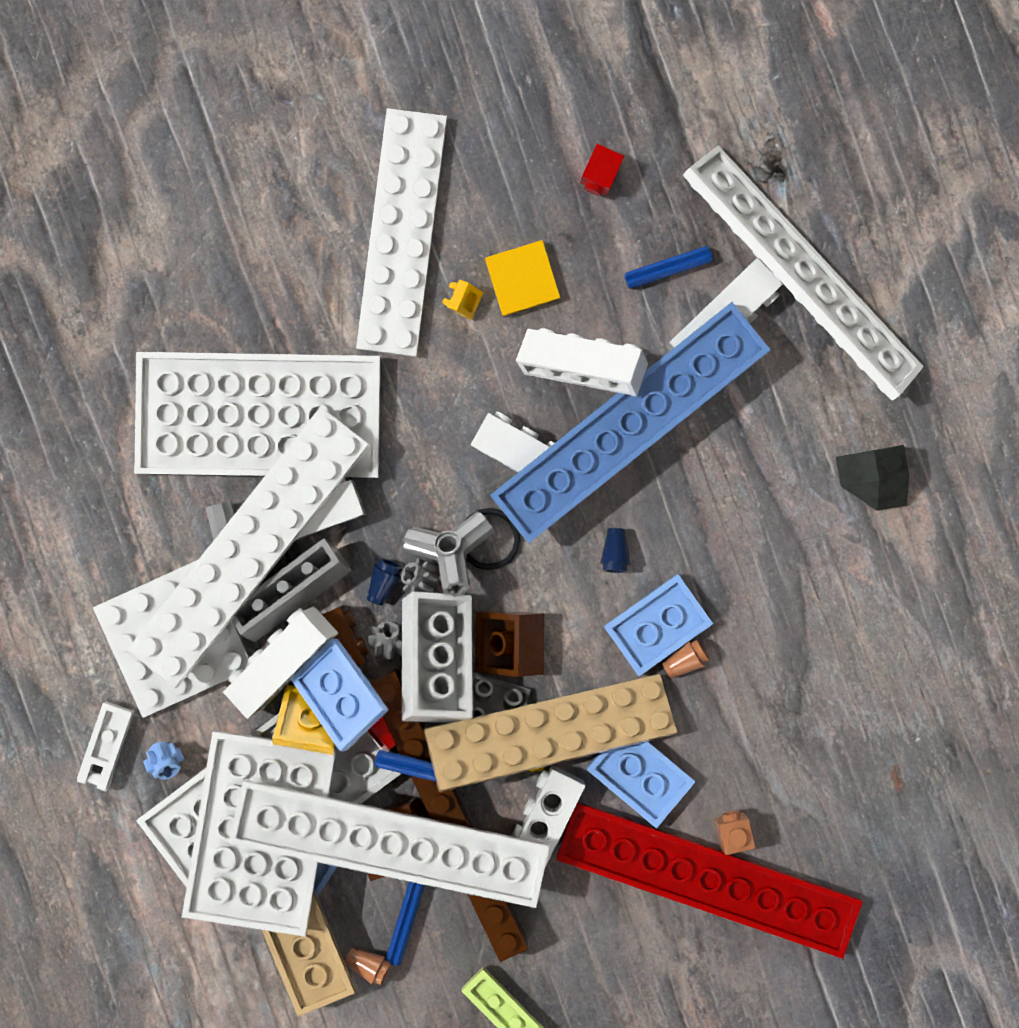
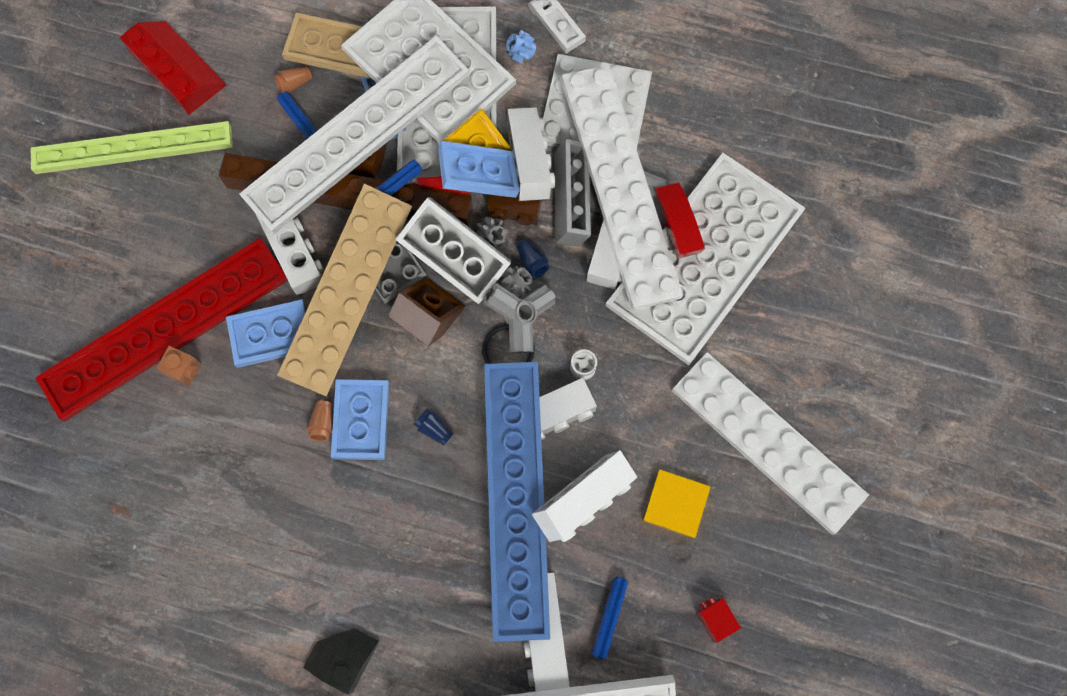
camera: 125 degrees right, 15 degrees down
(244, 464) = (679, 220): none -> red slope
(451, 453) = (586, 360): none -> white wheel
(464, 299) = (689, 449): yellow tile -> none

